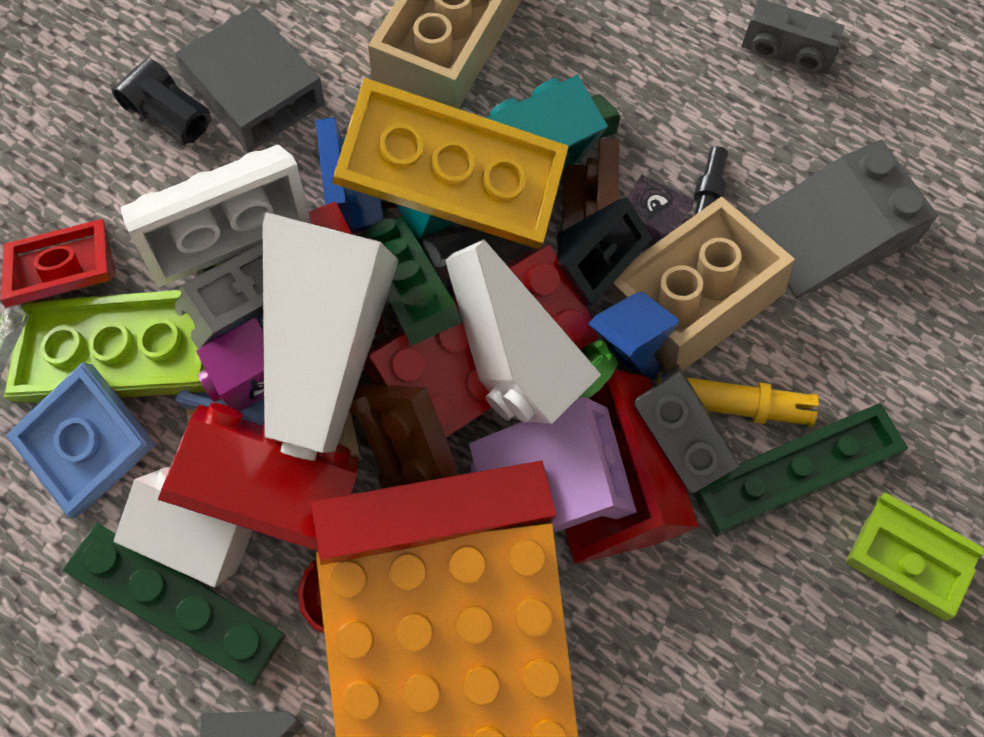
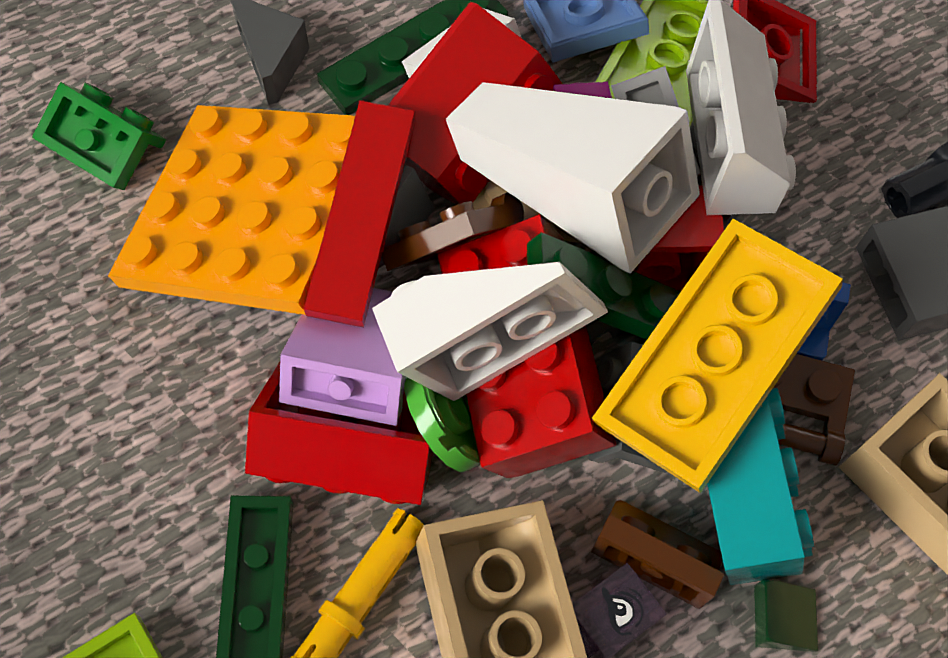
camera: 115 degrees right, 0 degrees up
(601, 248) = (572, 493): black slope -> none
(636, 331) = (461, 483): blue slope -> none
(686, 430) = (343, 509): dark grey bracket -> none

